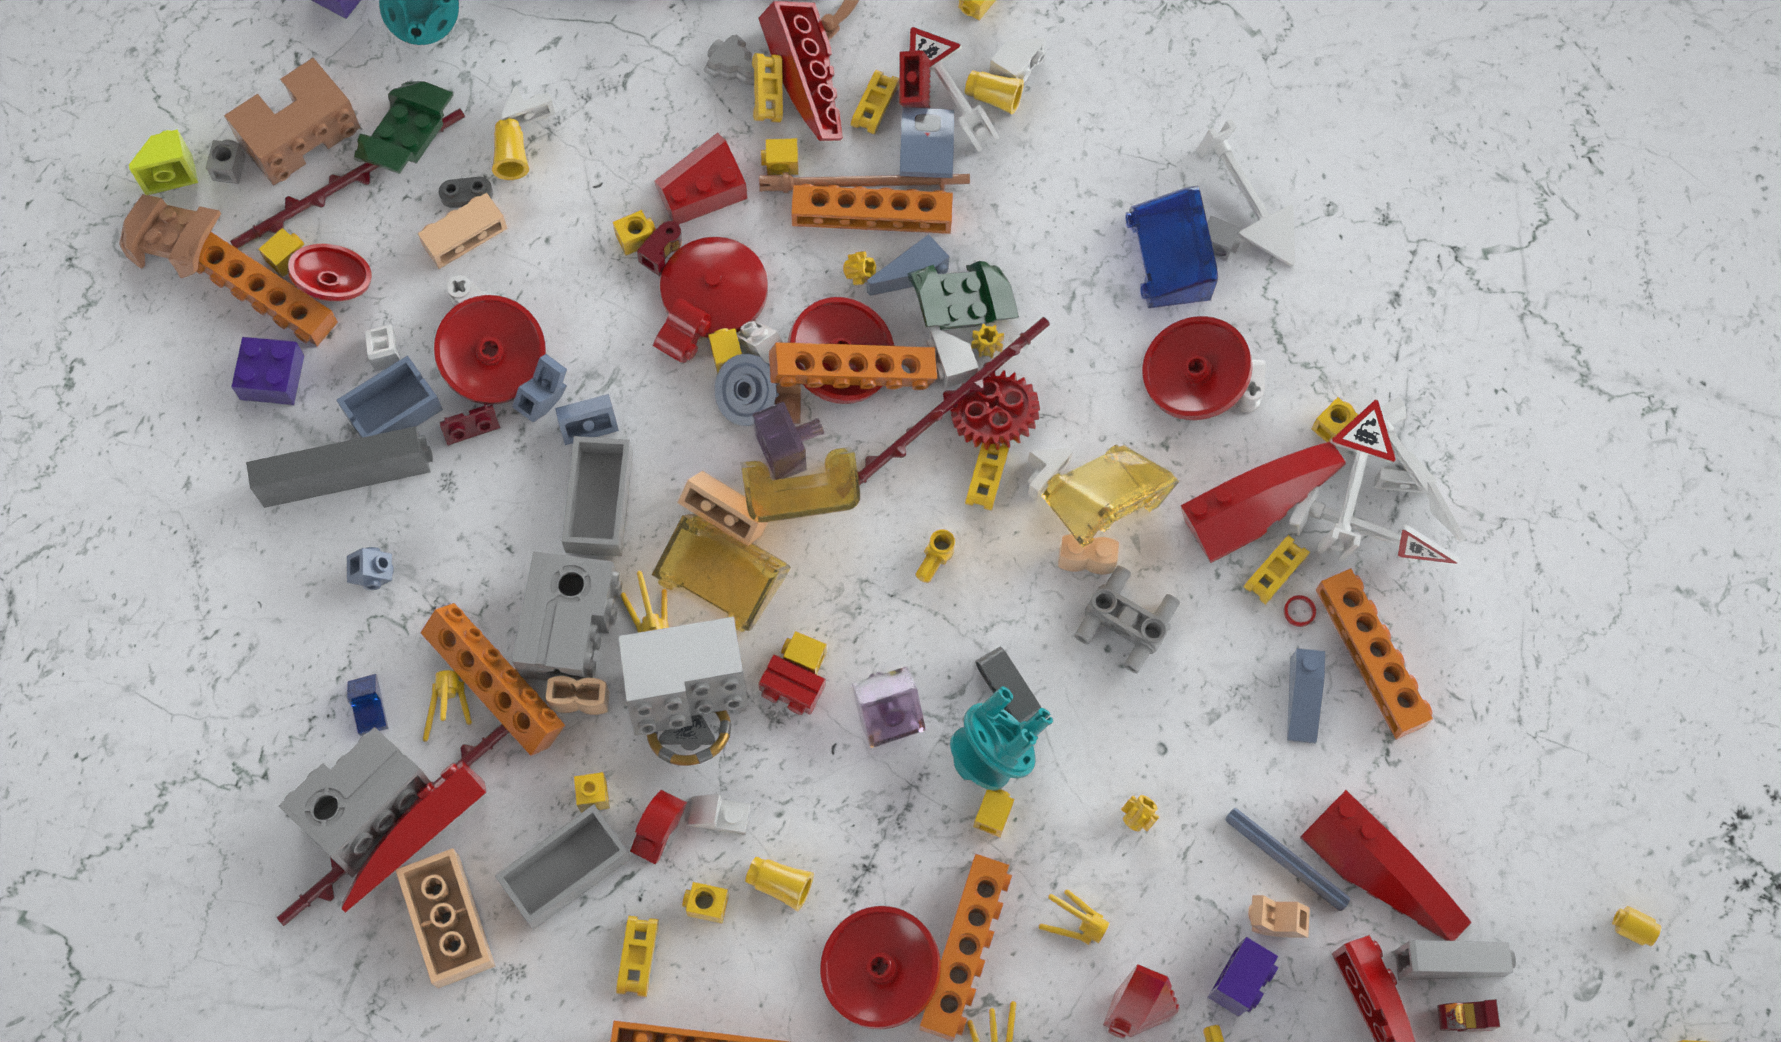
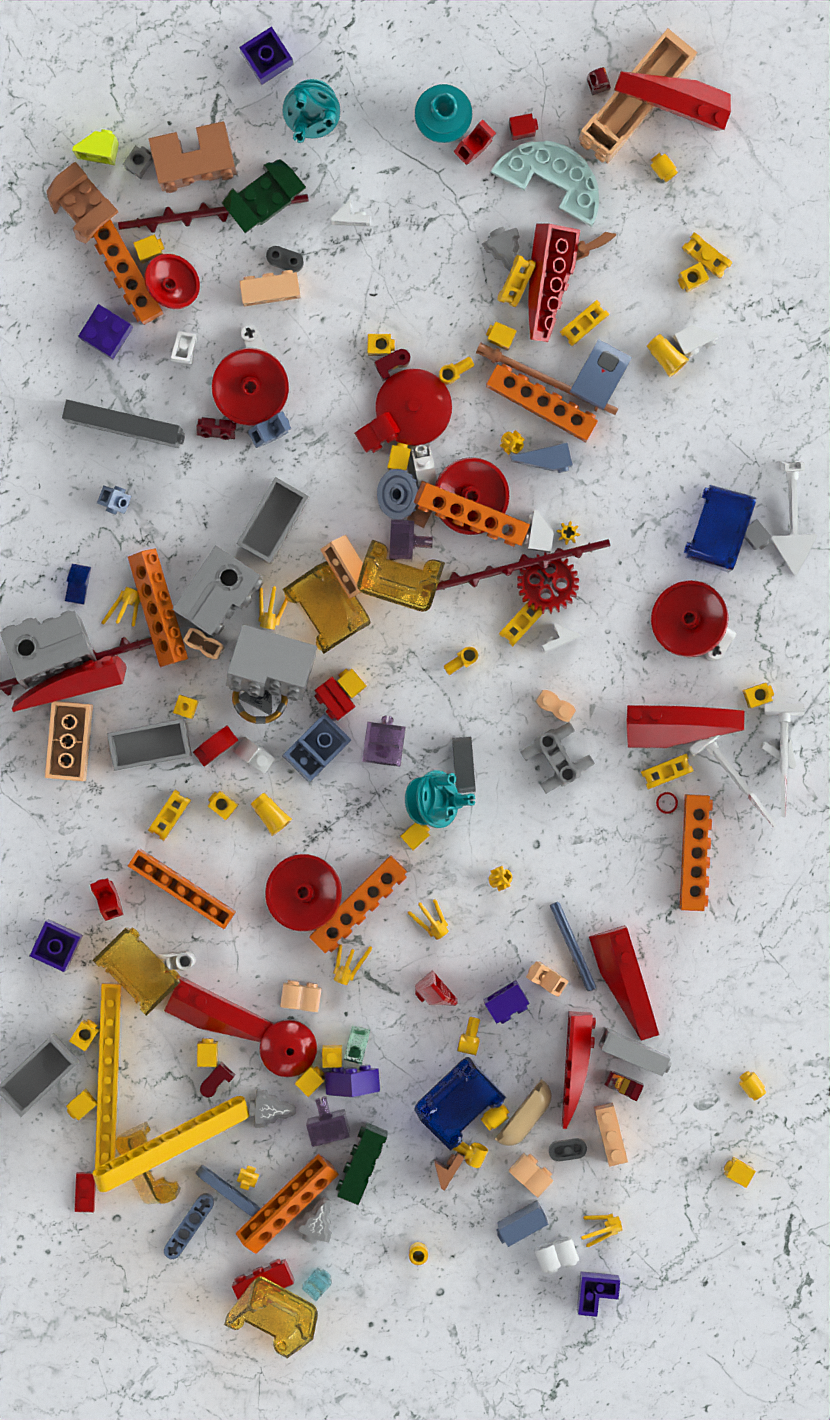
camera: 30 degrees right, 20 degrees up
(390, 400) = (171, 394): sand blue piece -> none
(509, 151) = (325, 243): yellow plant -> none
(587, 418) = (289, 464): sand blue brick -> none
(702, 182) = (440, 326): red wedge -> none
(744, 219) = (456, 369): none -> yellow axle
(799, 762) = (316, 748): none -> sand blue slope
(914, 79) = (615, 324): red brick -> none
(938, 50) = (637, 305): white piece -> none
(964, 297) = (567, 497): piece -> none
(1107, 490) = (586, 676): clear yellow windscreen -> none
(1305, 694) = (638, 857): sand blue slope -> none
(1366, 437) = (767, 719): white piece -> none

